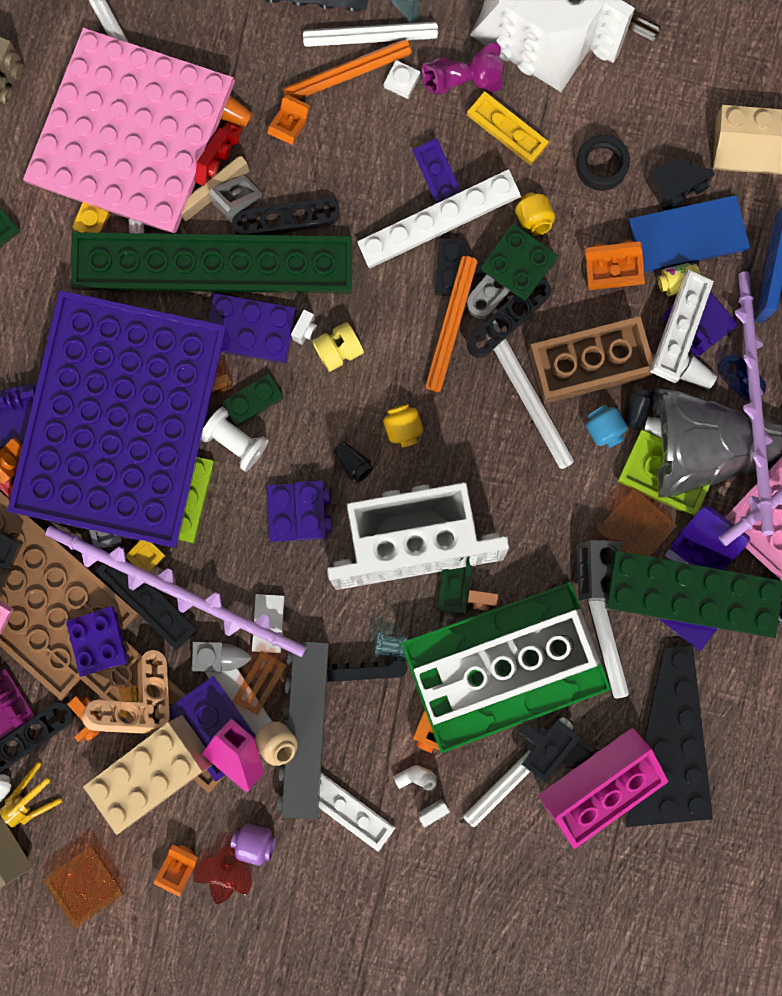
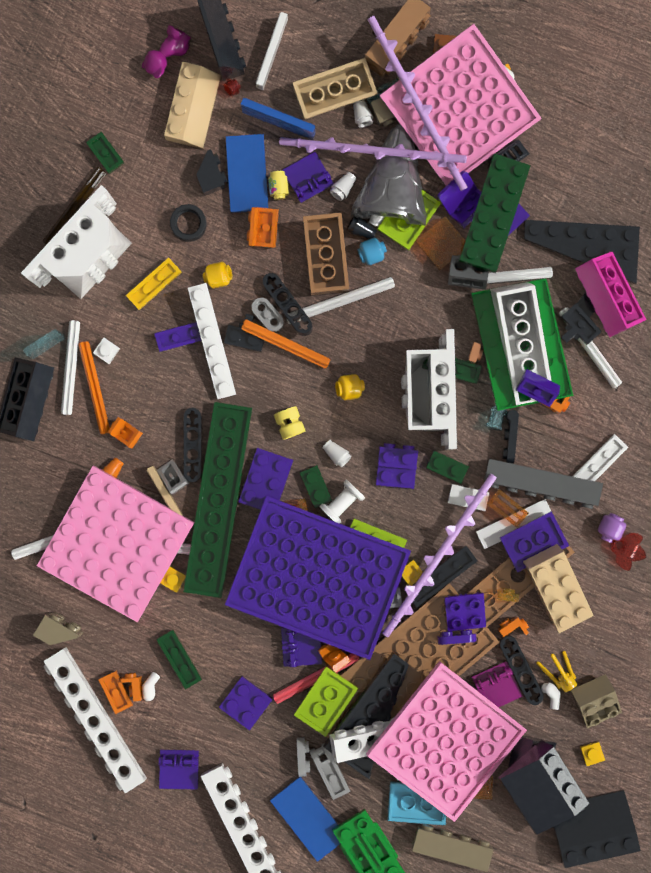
camera: 80 degrees left, 5 degrees up
(59, 646) = (449, 638): none -> dark purple plate
(83, 886) = (622, 643): clear orange plate -> none
(139, 710) = (514, 584): light nougat beam -> none
(176, 869) = (620, 580): orange bracket -> none
(217, 149) = (140, 484): red hinge -> none
(217, 657) = (486, 533): light grey plate -> none
(235, 755) = (555, 529): dark pink slope -> none
(276, 743) = (551, 502): tan head -> none
(303, 423) = (337, 454): none -> white cone
(304, 328) = (272, 443): white plate -> none
(308, 586) = (447, 467): none -> dark green plate
(353, 462) = (369, 424): black cone -> none
(417, 775) = (582, 414): white arm -> none
(433, 813) = (609, 406): white tile -> none
(443, 697) = (538, 388): none -> dark purple slope
(484, 71) = (111, 293): magenta animal -> none
(519, 262) = (251, 291): dark green bracket -> none
(681, 326) = (313, 189): white tile -> none
(682, 33) = (105, 152): none -> dark green plate
(734, 380) = (351, 161): clear blue beam -> none

